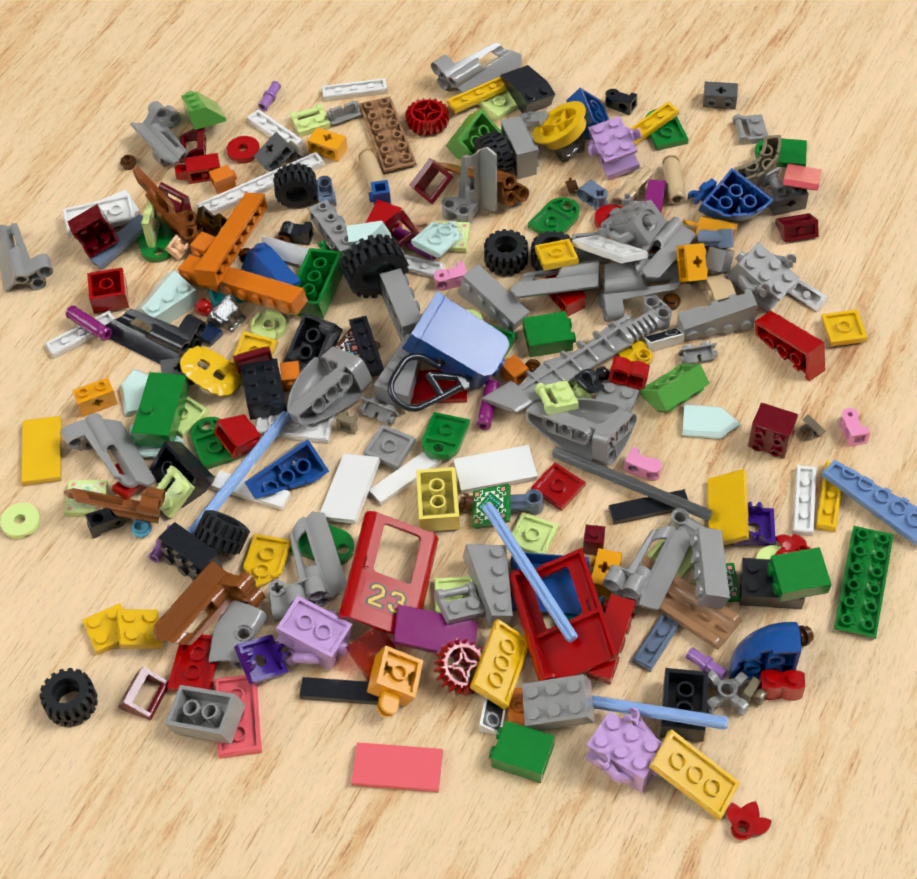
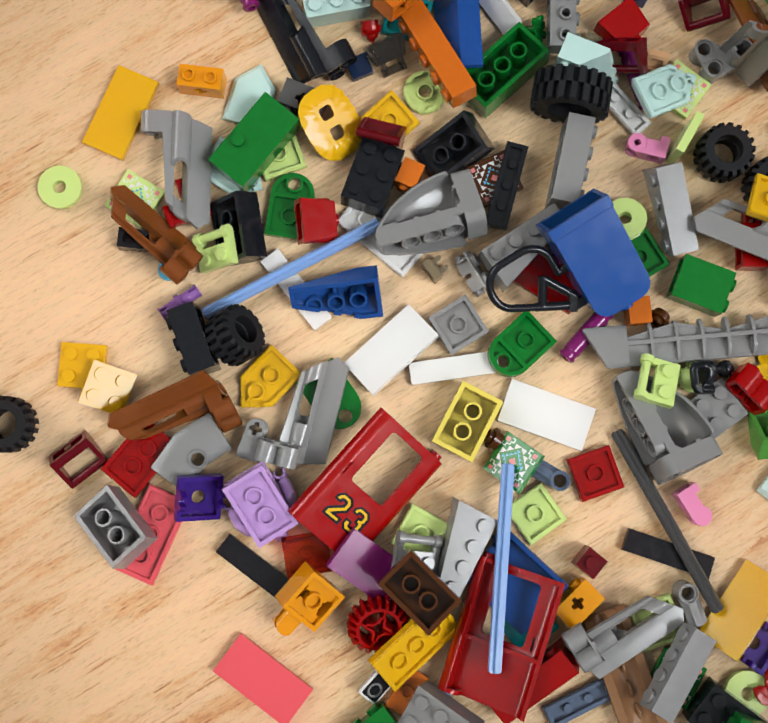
camera: 25 degrees right, 30 degrees up
(471, 249) = (684, 137): none -> yellowish green tile
(475, 610) = (419, 591): none -> reddish brown brick

